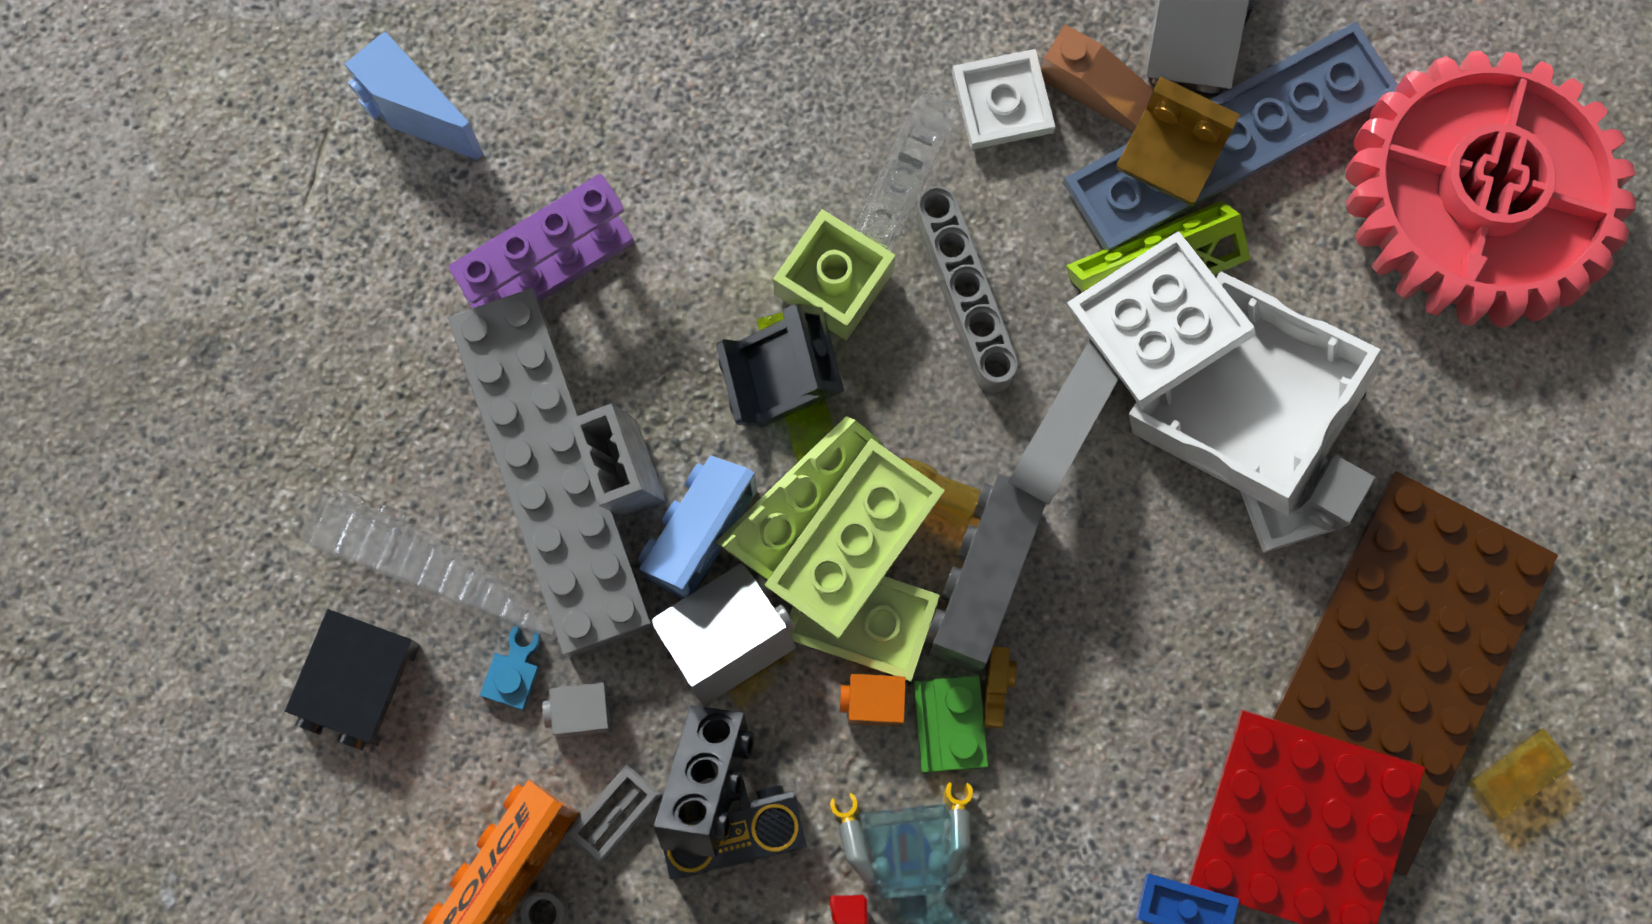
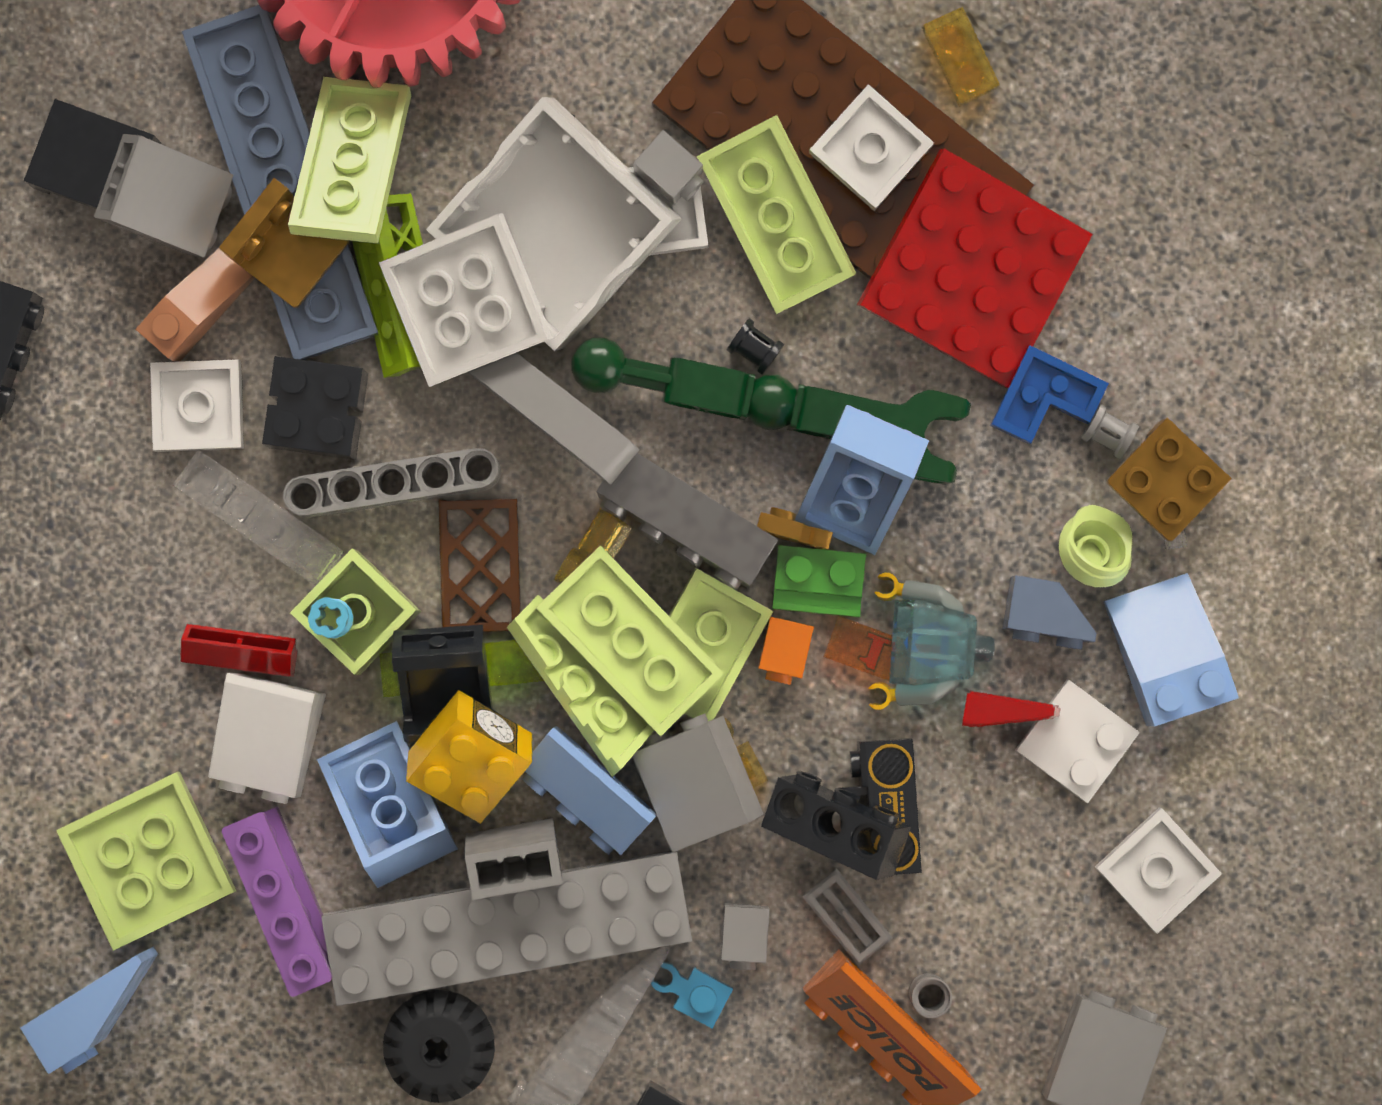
camera: 85 degrees left, 10 degrees up
(430, 452) = (440, 1017): none -> black wheel
(562, 128) = (146, 860): none -> yellowish green plate
(650, 339) = (386, 817): none -> light blue slope
(700, 213) = (265, 736): none -> white slope
(711, 403) = (469, 757): none -> yellow brick
(777, 178) = (239, 650): none -> red piece
(822, 255) = (317, 613): none -> medium azure bush
(890, 778) = (860, 648): none -> clear orange tile
(915, 355) = (448, 544): none -> reddish brown window
(1021, 200) = (315, 408): none -> black piece
(1065, 743) = (862, 479): none -> light blue slope
(1122, 646) = (767, 401): none -> dark green piece
(1174, 616) = (755, 346): none -> black bush
(1270, 189) = (350, 160): none -> yellowish green plate
(1314, 611) = (776, 214): none -> yellowish green plate
(1406, 694) = (871, 147): none -> white plate

